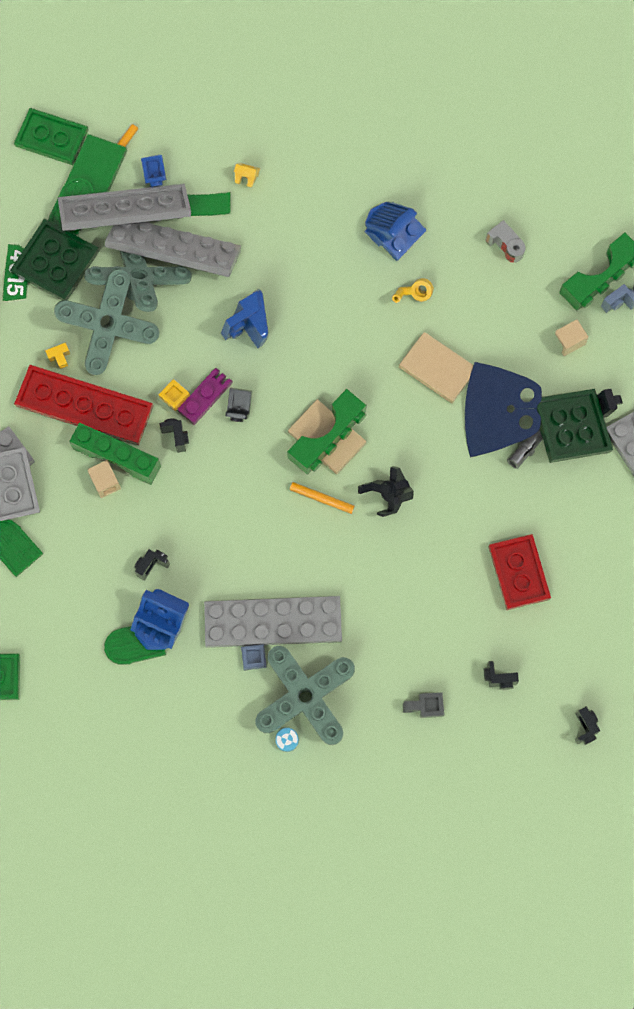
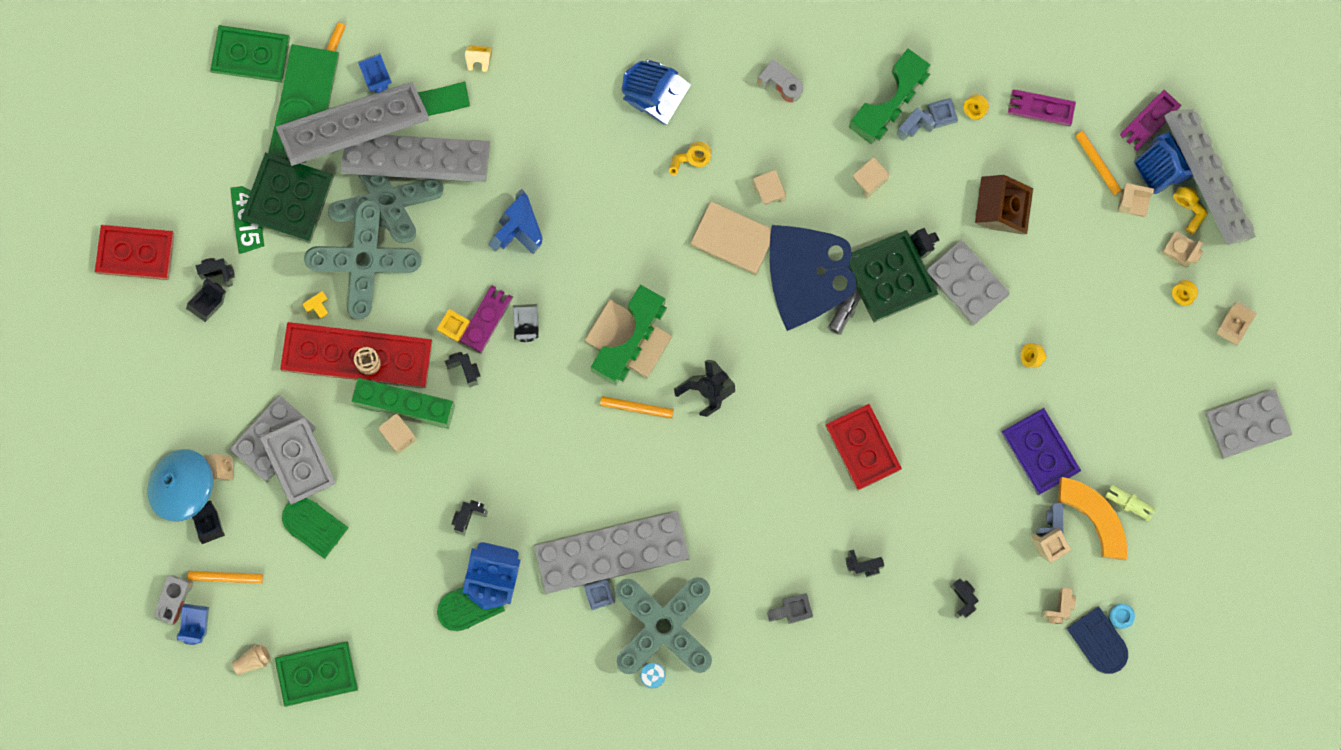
camera: 15 degrees left, 5 degrees up
(91, 414) = (367, 365): none -> tan wheel
(478, 329) = (769, 187): none -> tan panel

